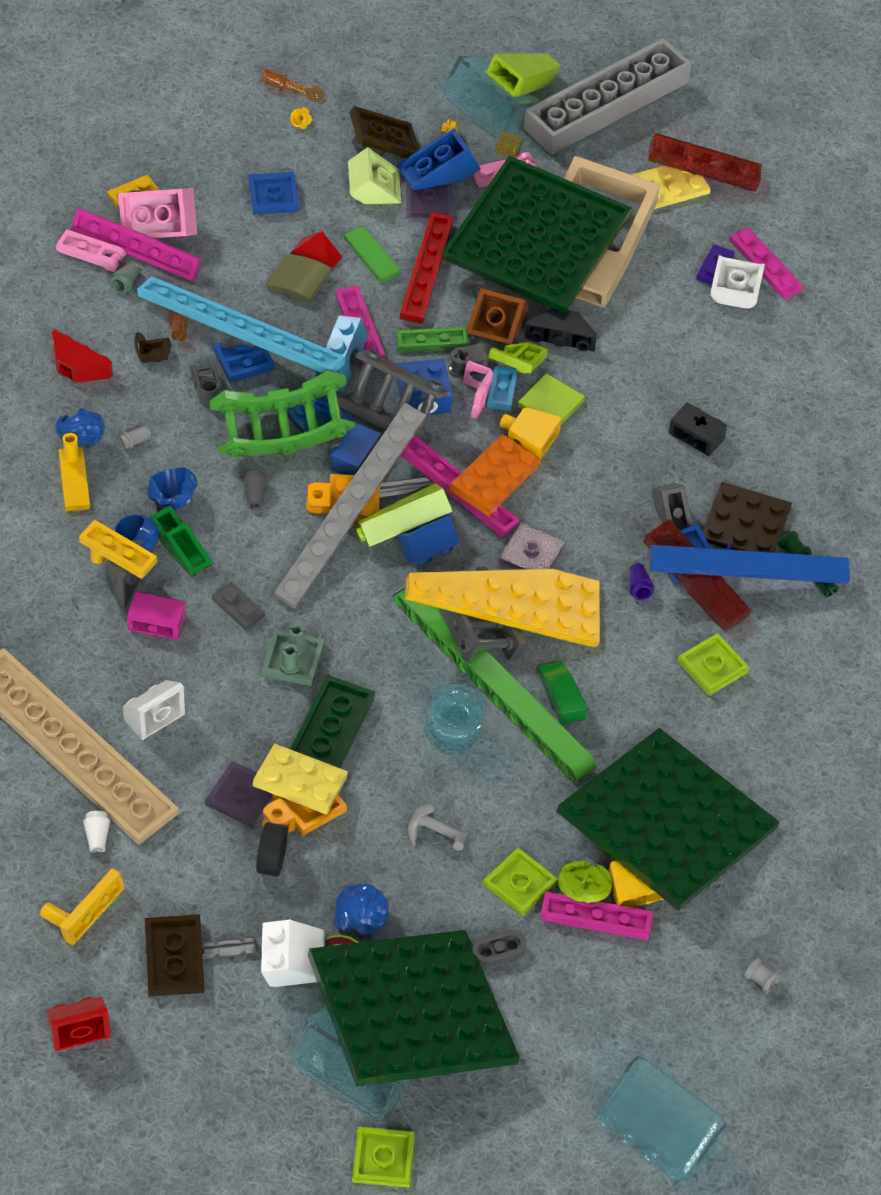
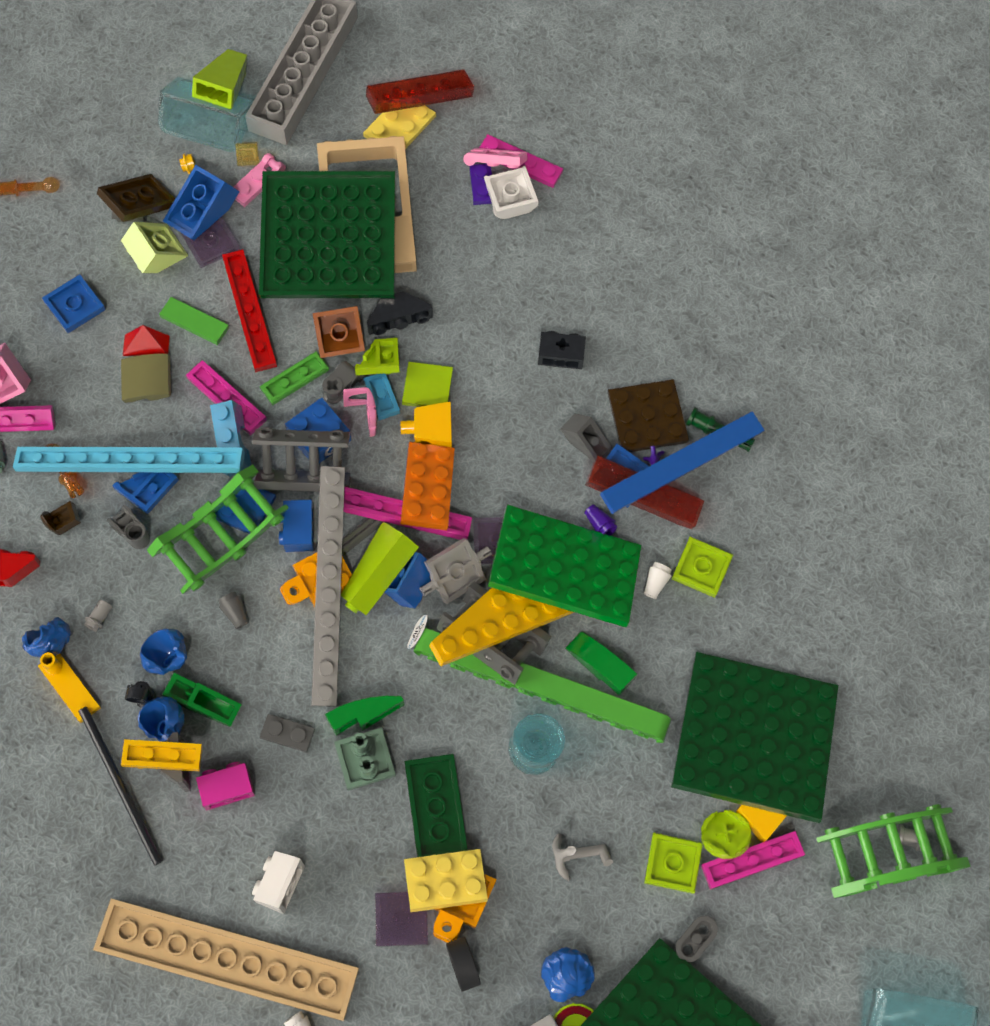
camera: 30 degrees left, 15 degrees up
(67, 574) = (120, 786): none -> black piece
(129, 503) = (139, 693): none -> black connector
(296, 115) = (49, 219): yellow plate -> none
(317, 620) = (363, 711): none -> green slope
(474, 548) = (455, 570): none -> light grey plate
(579, 593) = (565, 566): none -> green plate
(662, 652) = (657, 579): none -> white cone
(732, 987) = (904, 871): none -> bright green fence
(740, 246) = (495, 157): none -> bright pink plate

